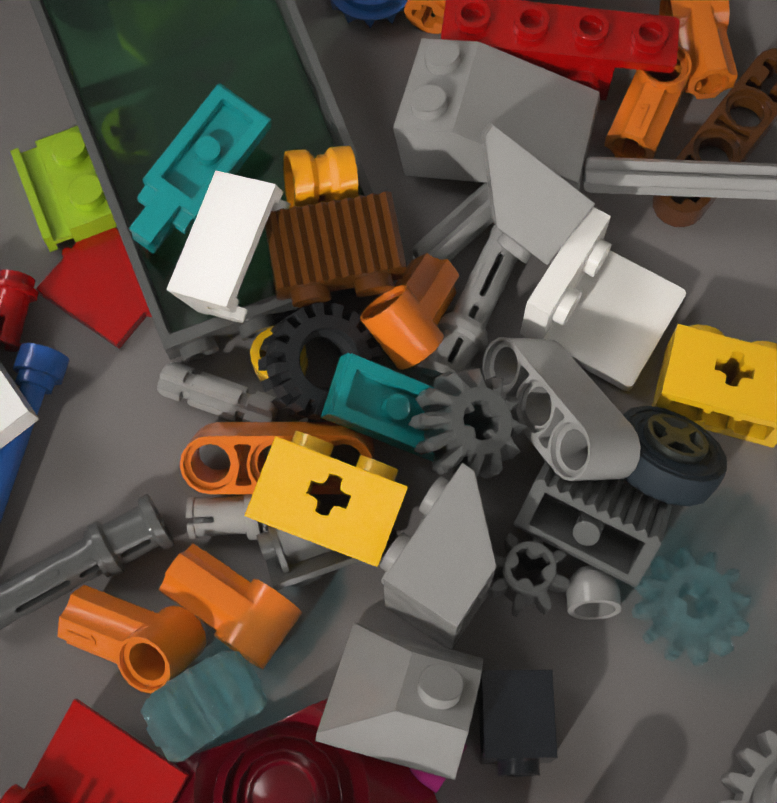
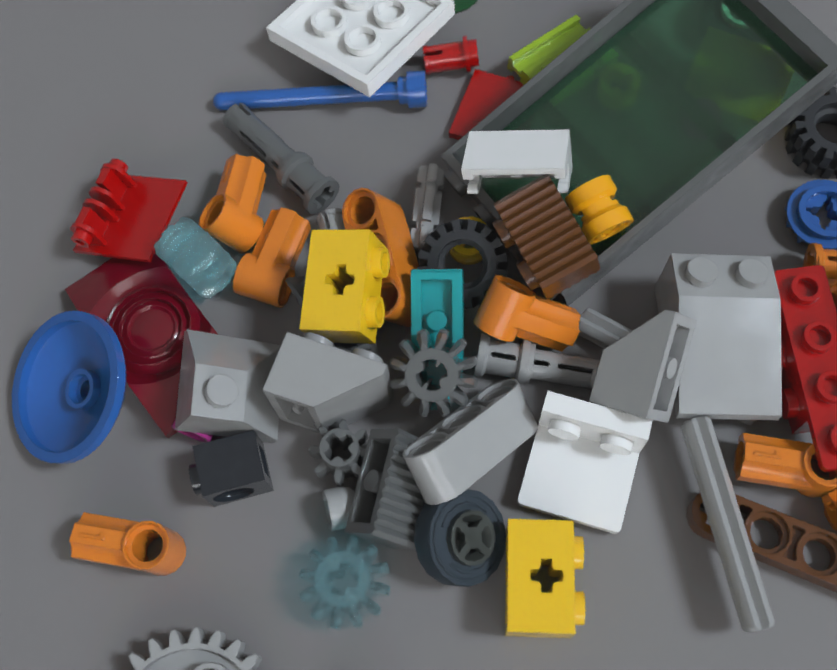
camera: 80 degrees right, 0 degrees up
(214, 139) = (593, 122): teal hinge -> none

